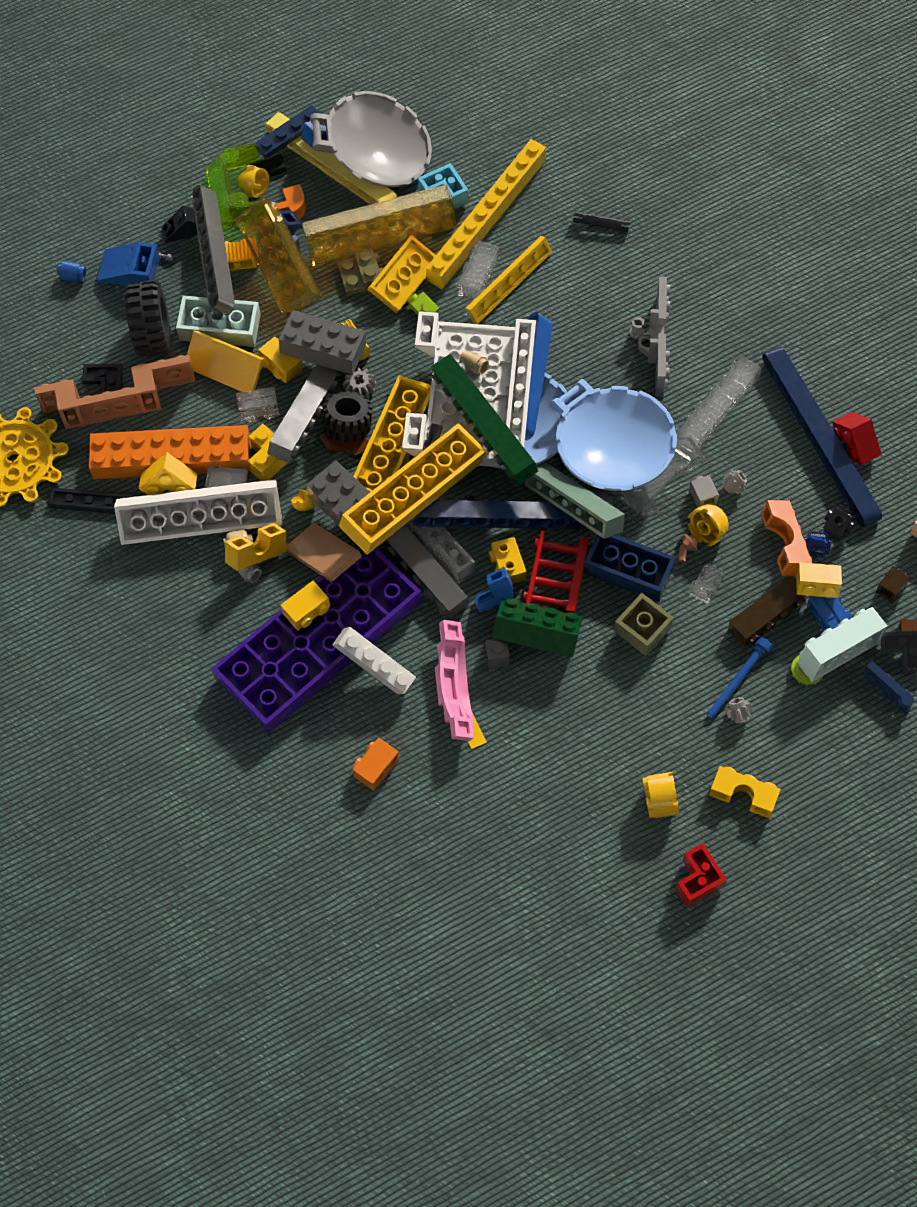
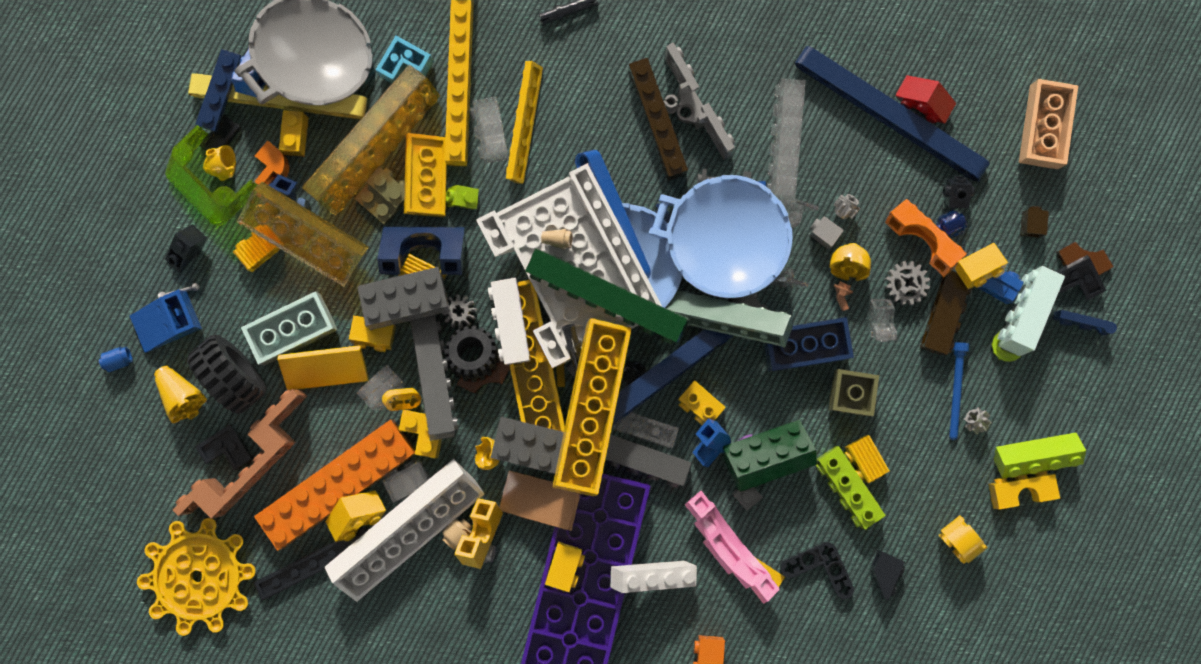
camera: 35 degrees left, 20 degrees up
(99, 322) = (178, 395): none -> yellow cone
(213, 250) = (236, 264): dark grey beam -> none
(270, 415) = (401, 399): none -> yellow beam
(323, 192) = (293, 133): none -> yellow brick
(383, 329) = (400, 241): none -> dark blue arch
(393, 402) = (510, 321): none -> white brick
(526, 743) = (819, 559): none -> black beam
(577, 569) = (762, 374): red fence -> none
(578, 783) = (885, 573): none -> black slope
(590, 699) = (850, 488): none -> lime brick
(618, 334) = (658, 118): none -> dark brown arch
(621, 685) = (866, 459): none -> yellow brick
(704, 878) = (1039, 593): red brick -> none
(749, 575) = (899, 278): none -> light grey gear
(777, 768) = (1039, 455): none -> lime brick

